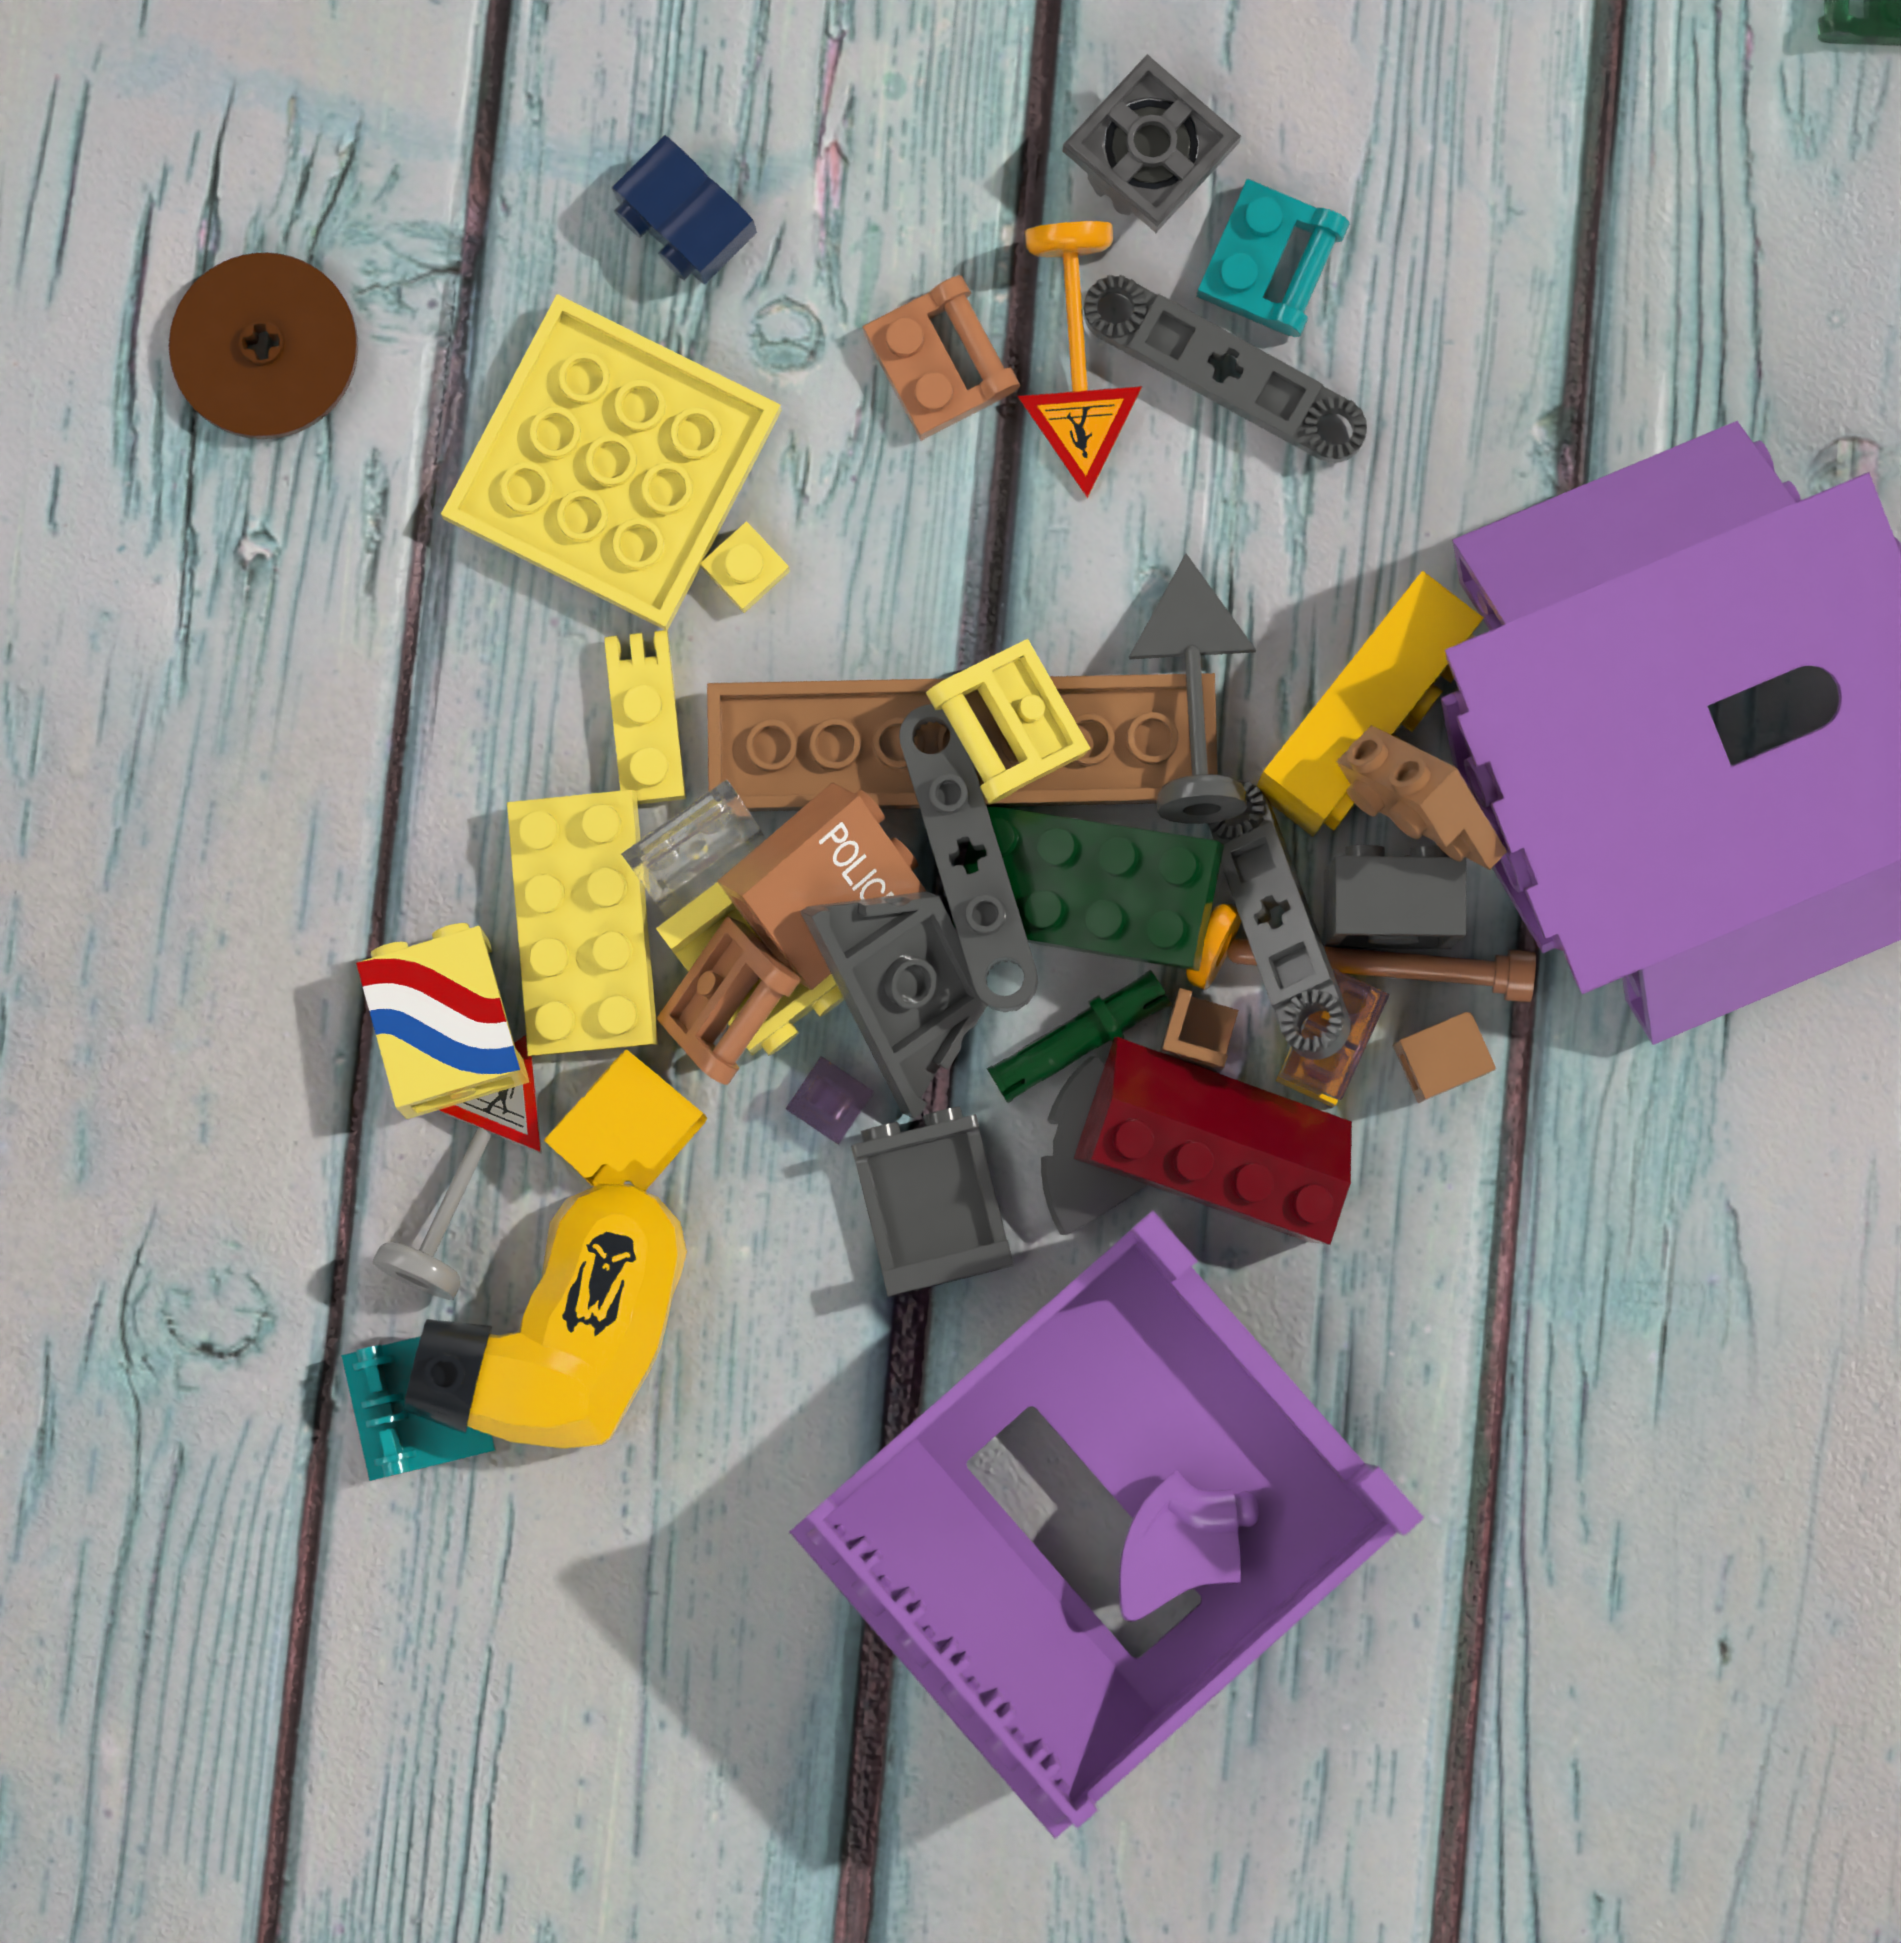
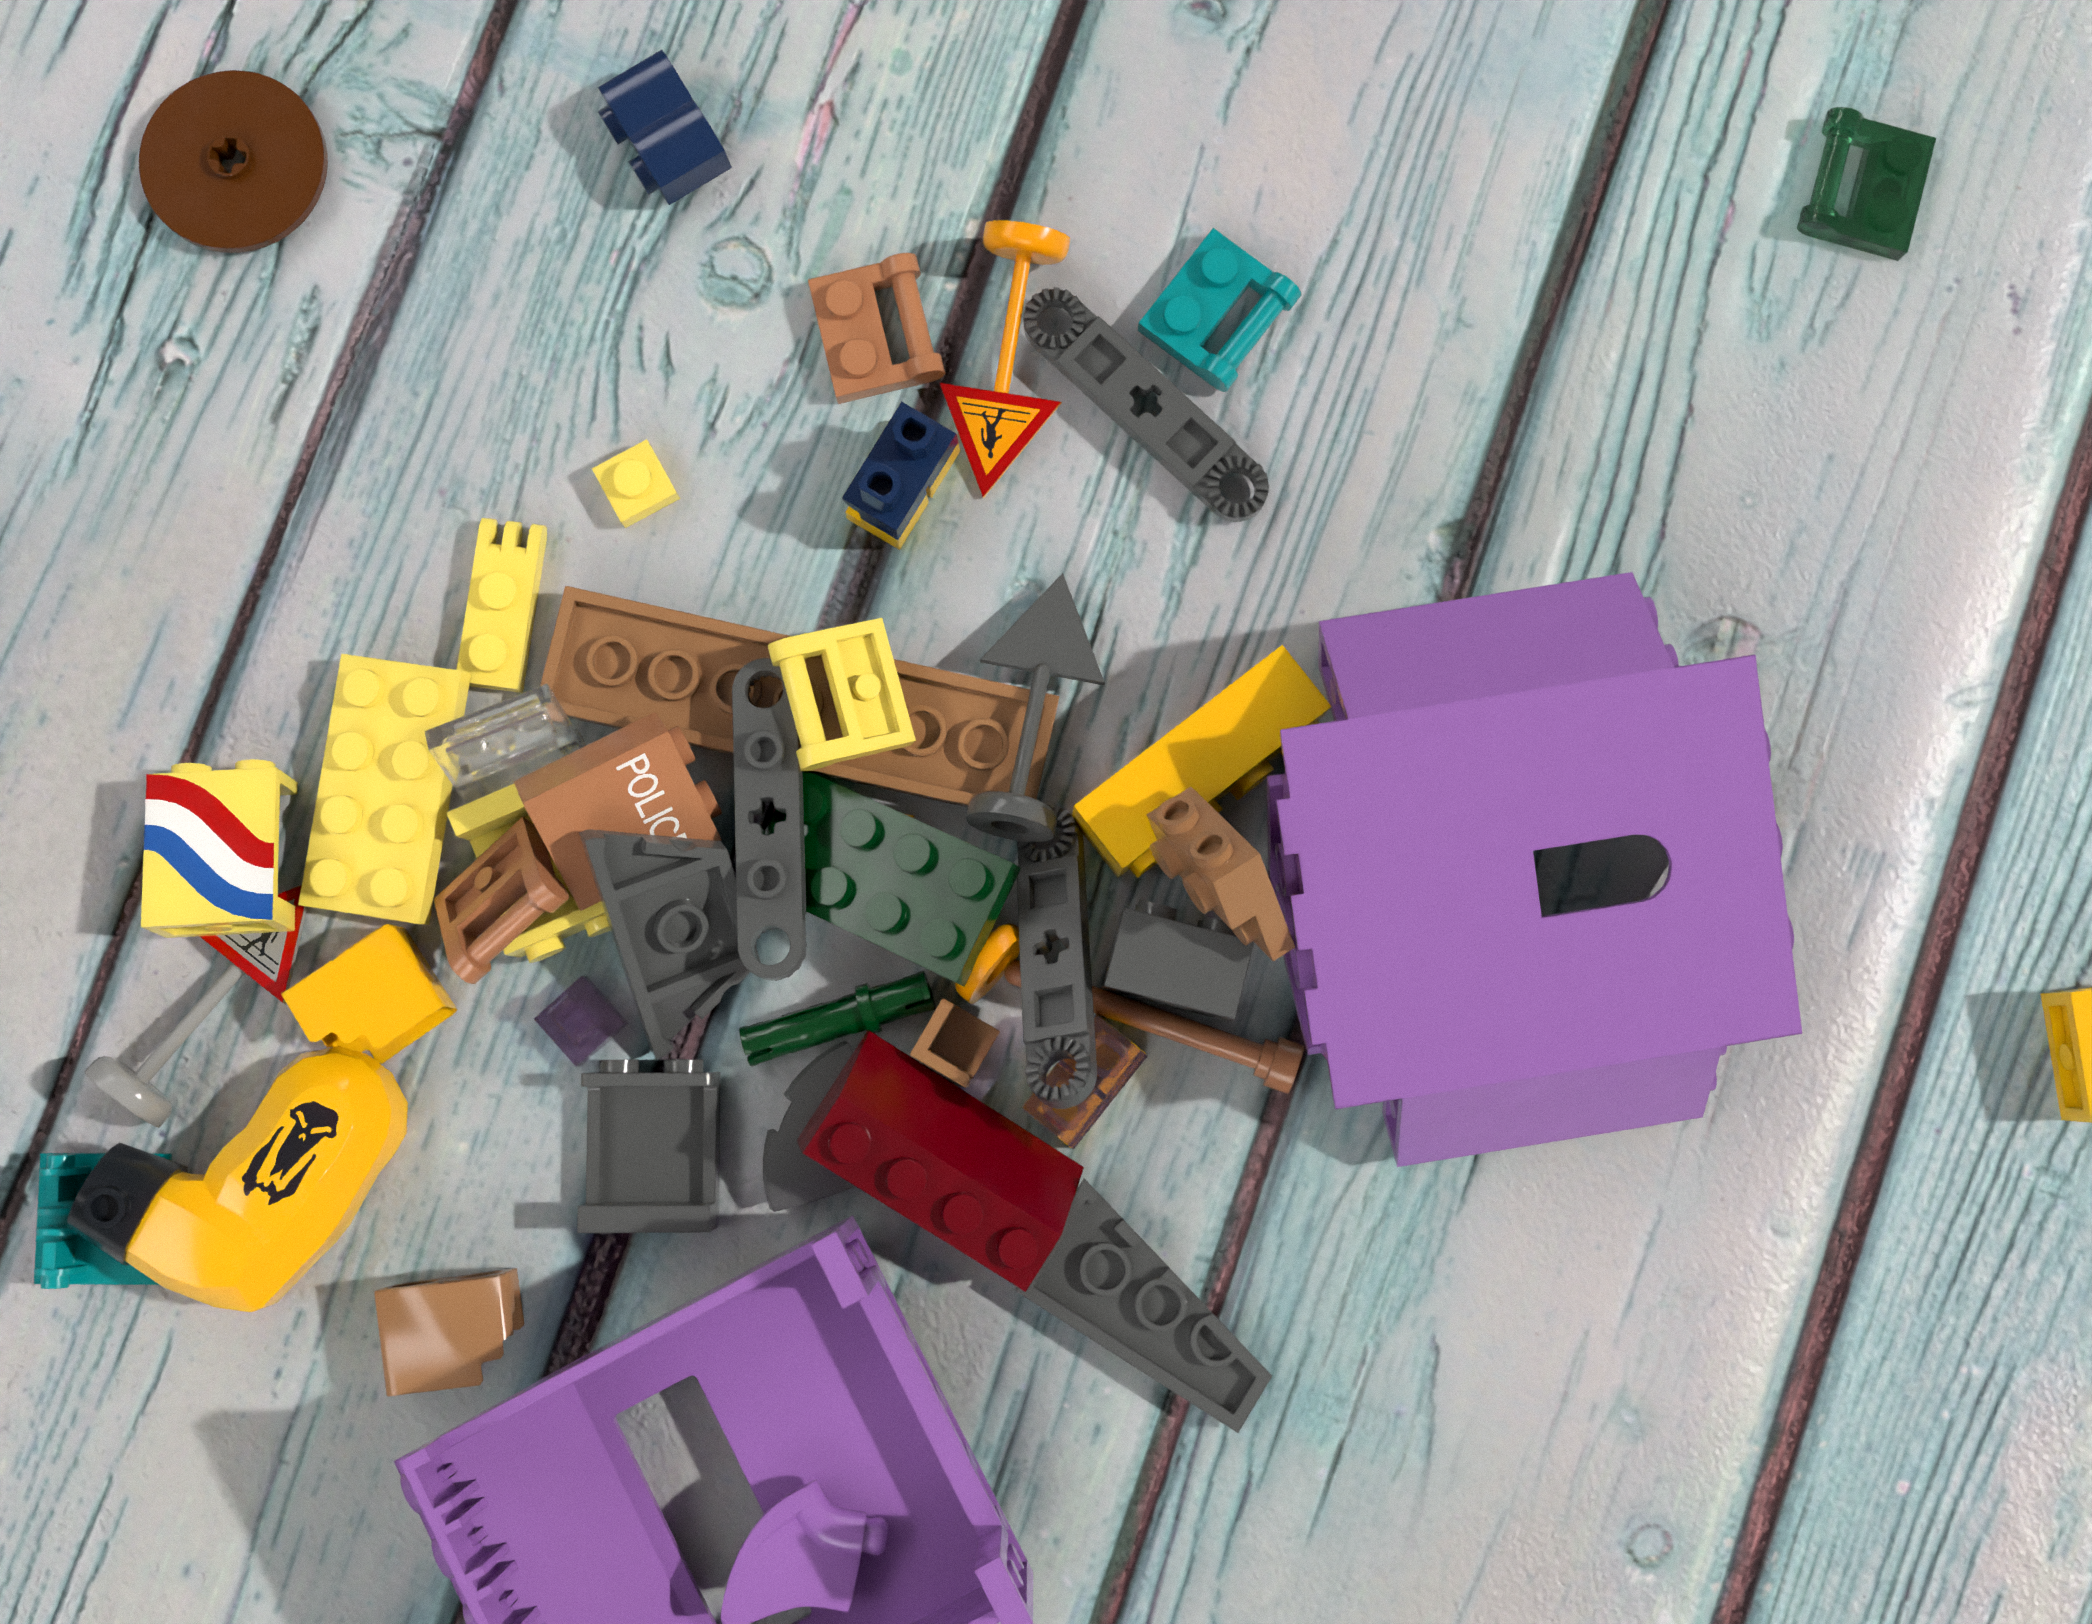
camera: 10 degrees right, 0 degrees up
(611, 462) = (532, 351): light yellow plate -> none
(783, 1422) = (445, 1329): none -> medium nougat piece
(1005, 497) = (900, 474): none -> dark blue hips
(1150, 144) = (1126, 172): flat silver piece -> none
(1442, 1242) = (1136, 1307): none -> dark grey wing
(1444, 1056) = (1189, 1129): medium nougat panel -> none

